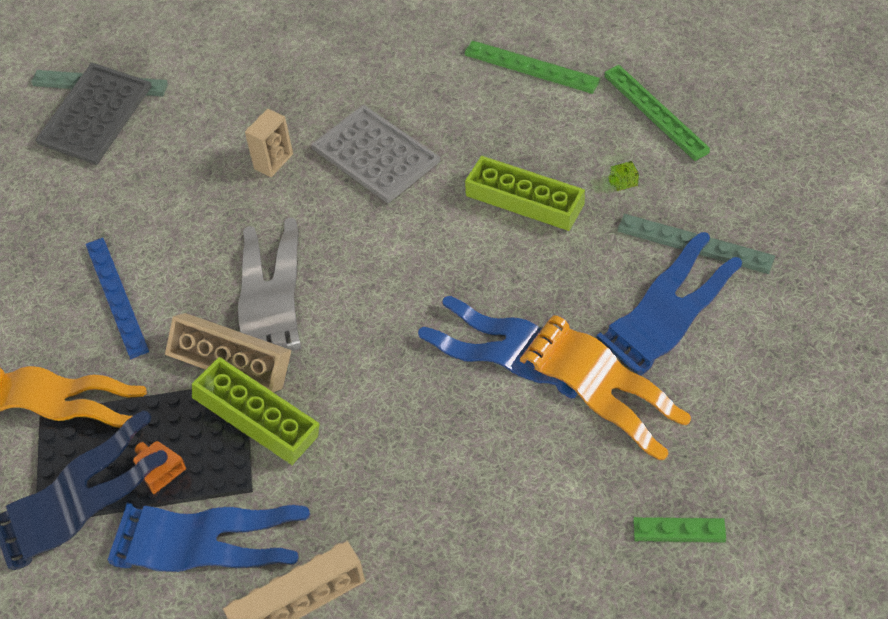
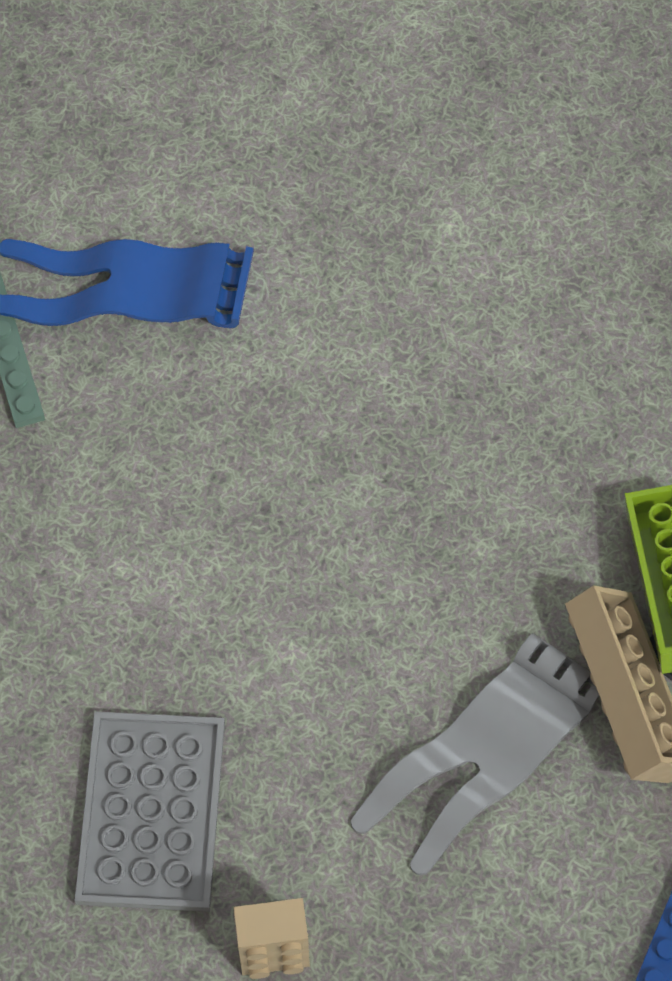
camera: 135 degrees left, 10 degrees up
(506, 353) = (314, 374): blue flag -> none
(525, 193) = (79, 551): lime brick -> none
(593, 374) = (296, 301): light orange flag -> none
(679, 529) = (410, 102): bright green plate -> none

